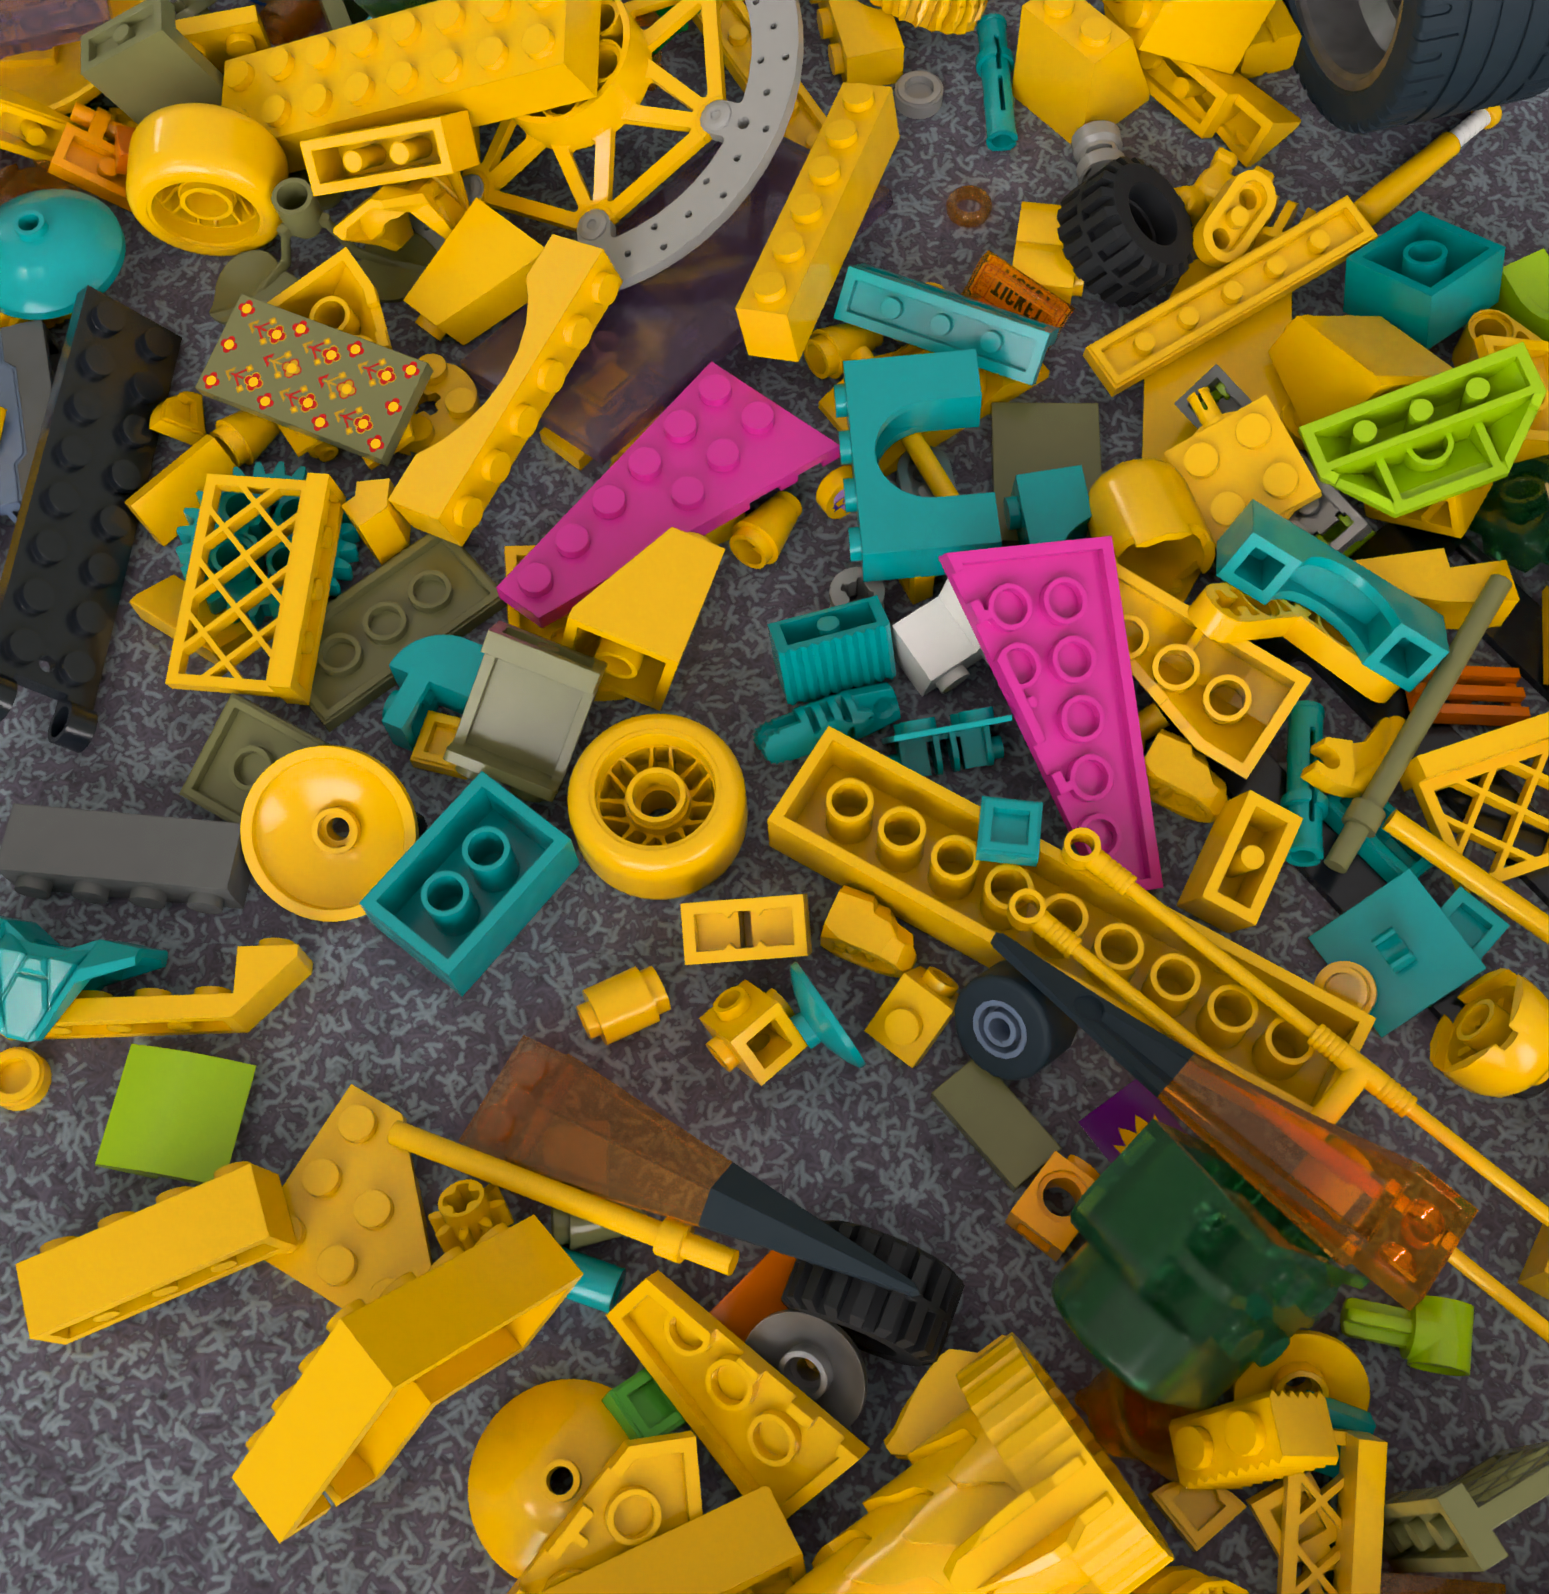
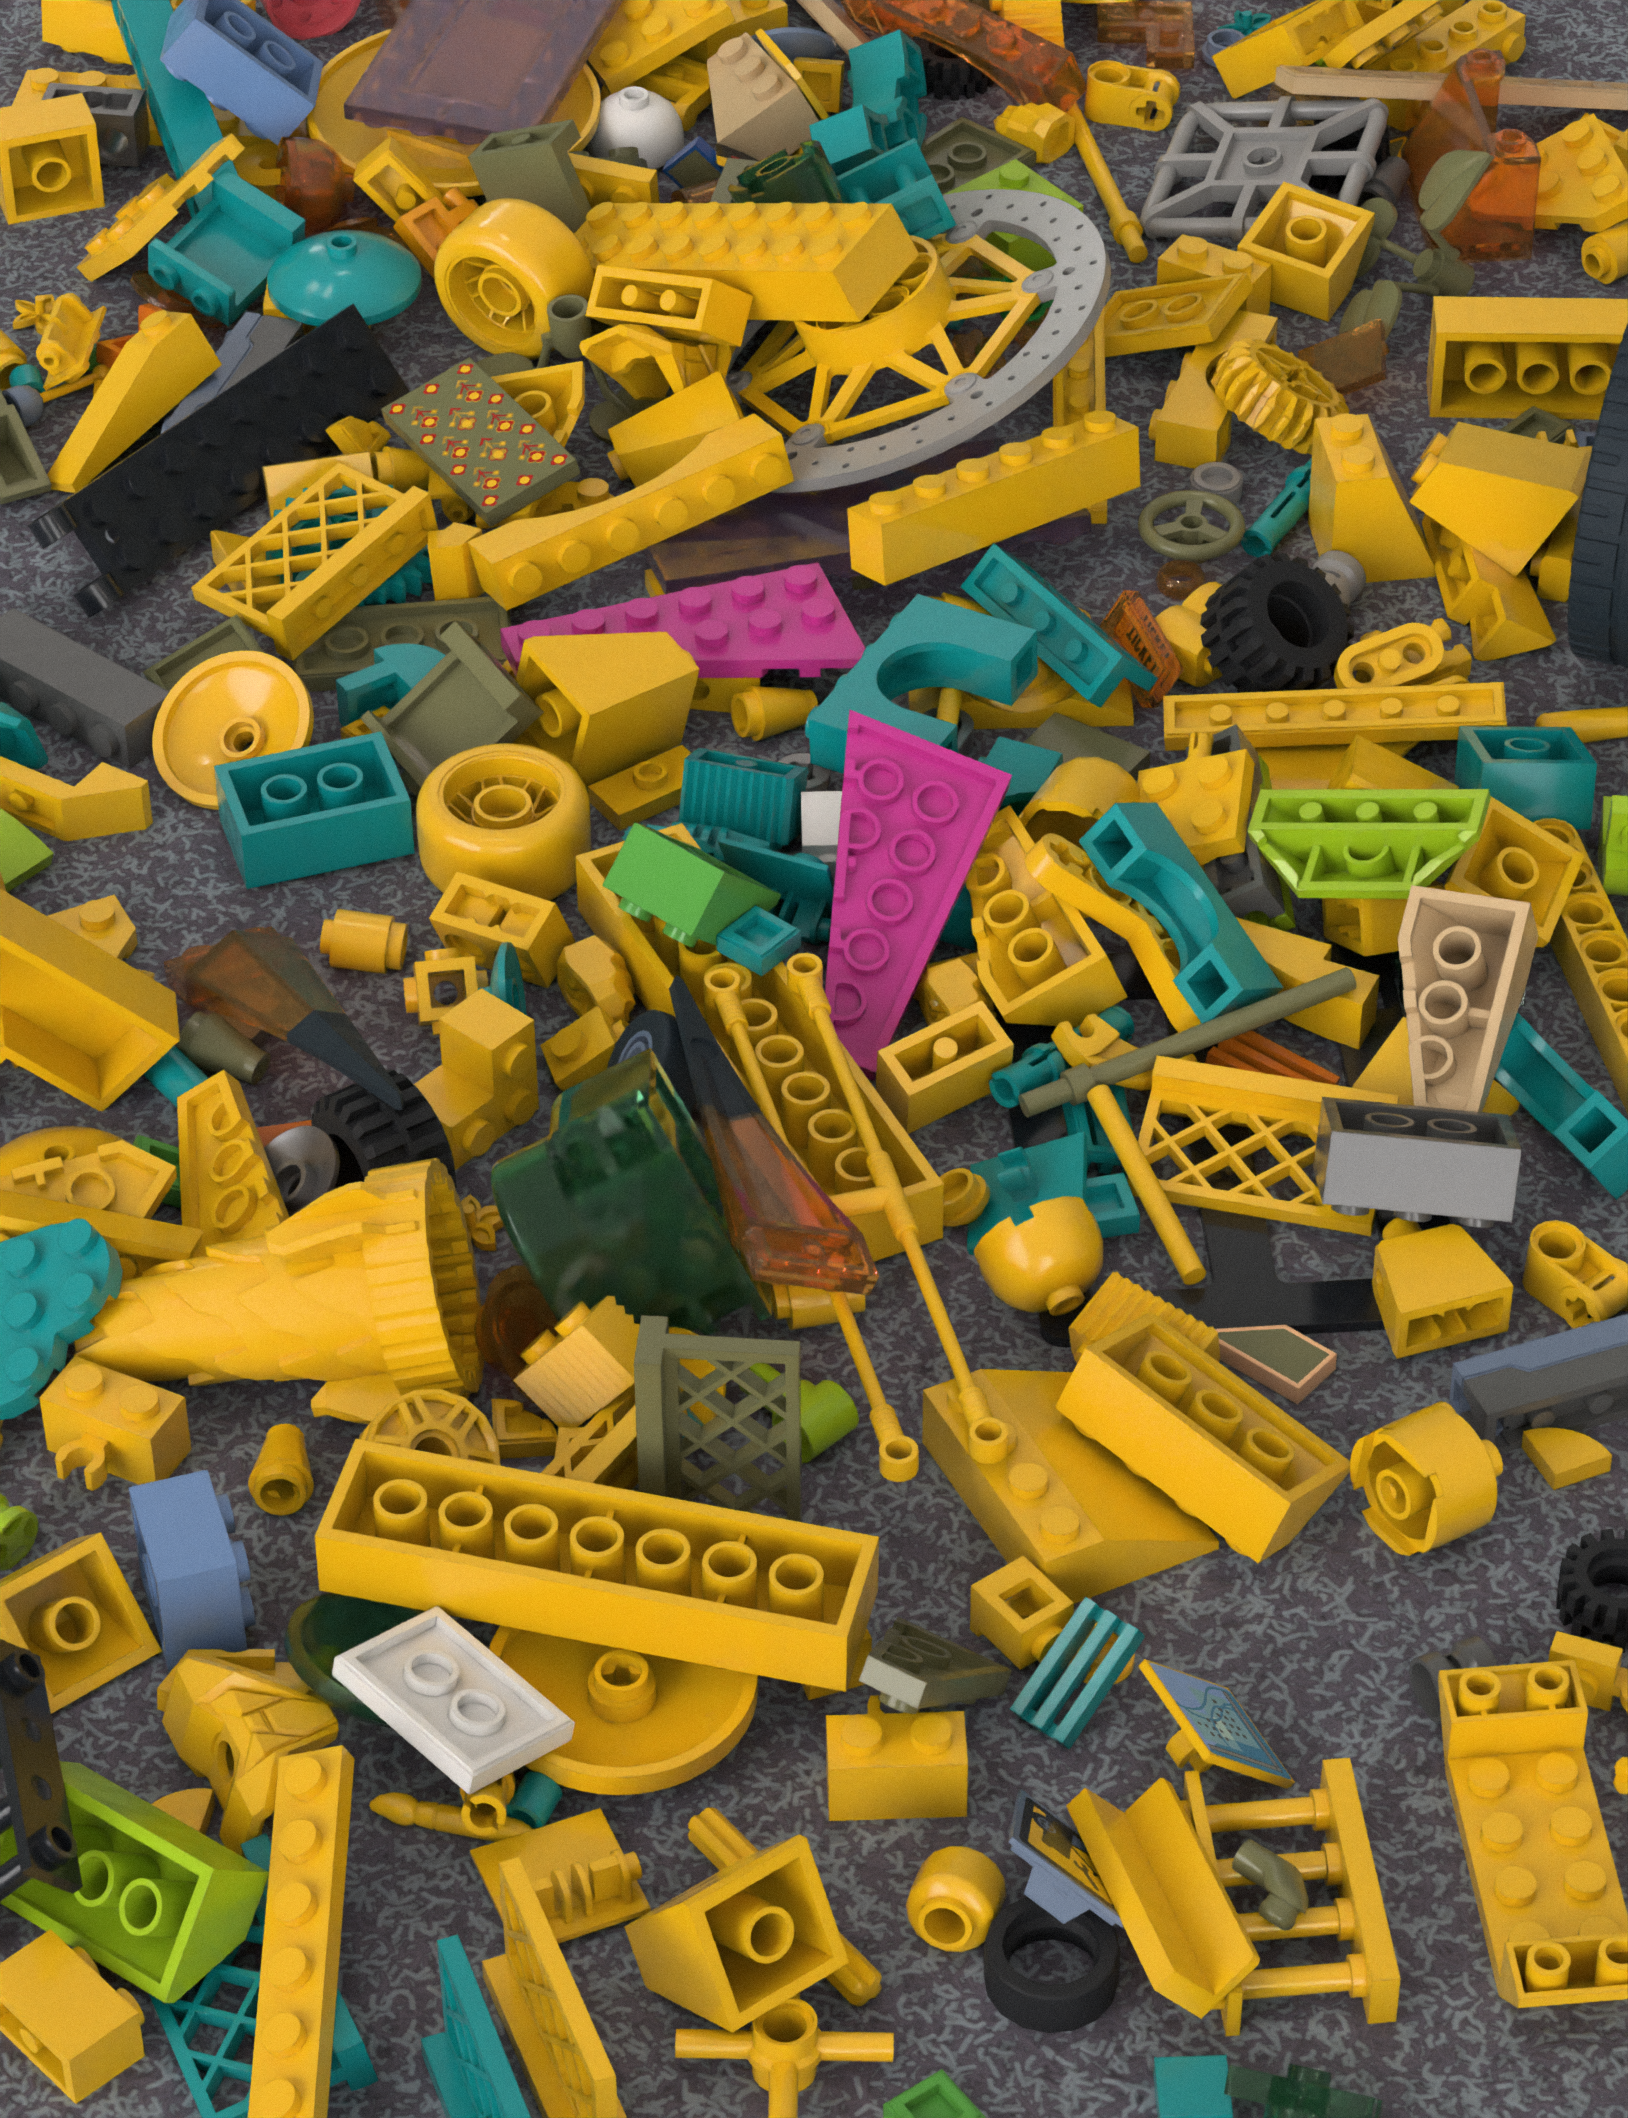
camera: 30 degrees right, 25 degrees down
(668, 1237) = (258, 1046): yellow bar -> none
(724, 670) = (641, 789): none -> yellow plate
(865, 1125) = (484, 1074): none -> yellow brick
(918, 816) = (682, 886): none -> bright green slope
(950, 161) = (1191, 535): none -> olive piece
(969, 1272) = (481, 1223): none -> yellow plant

